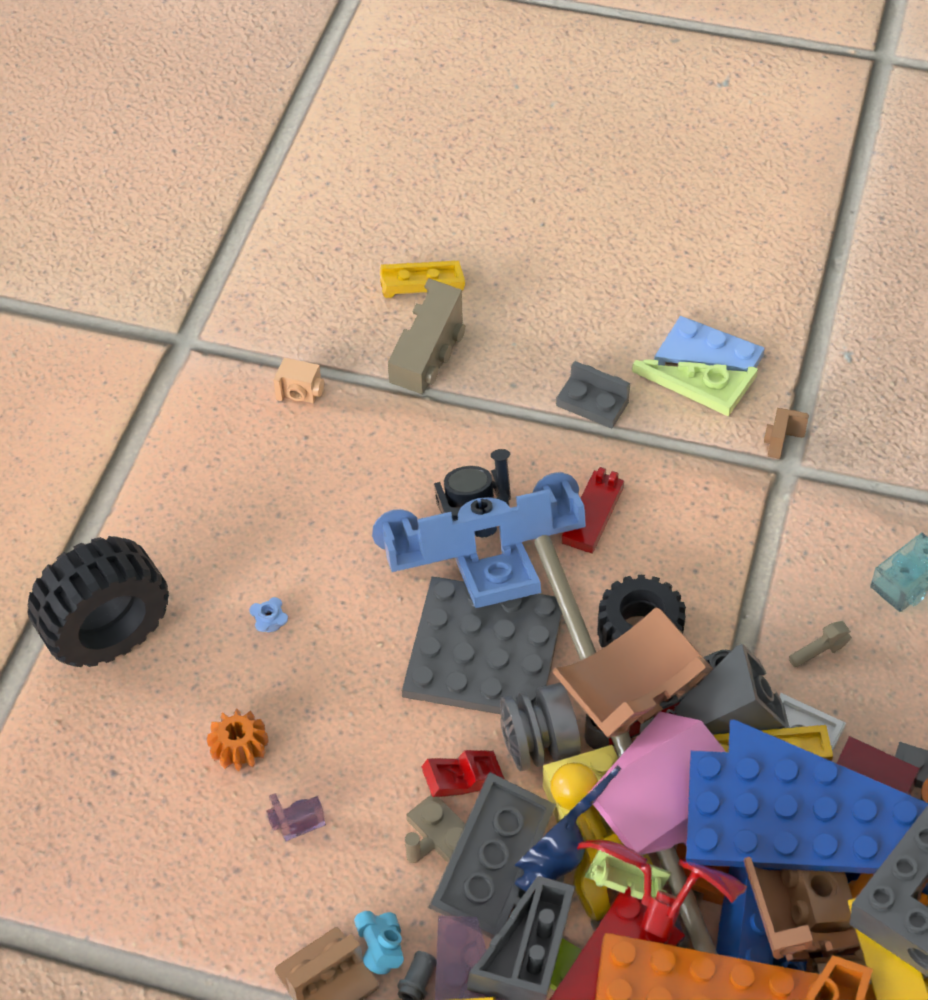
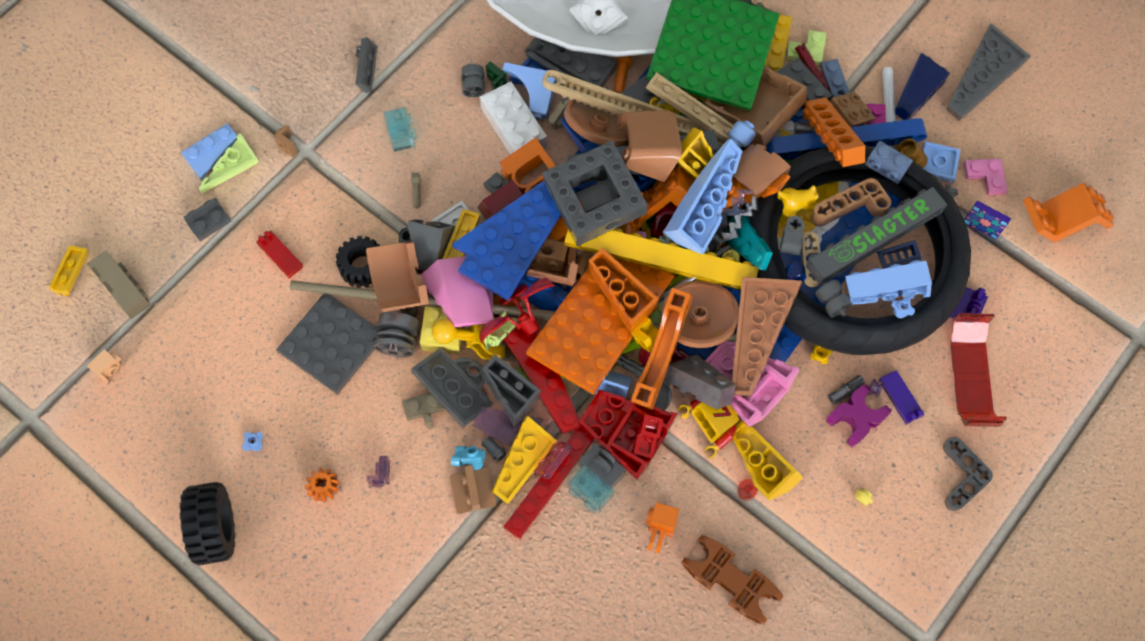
camera: 70 degrees left, 15 degrees up
(460, 774) = (398, 383): red slope -> none
(472, 511) = (297, 315): medium blue piece -> none
(557, 851) = (468, 351): dark blue animal -> none

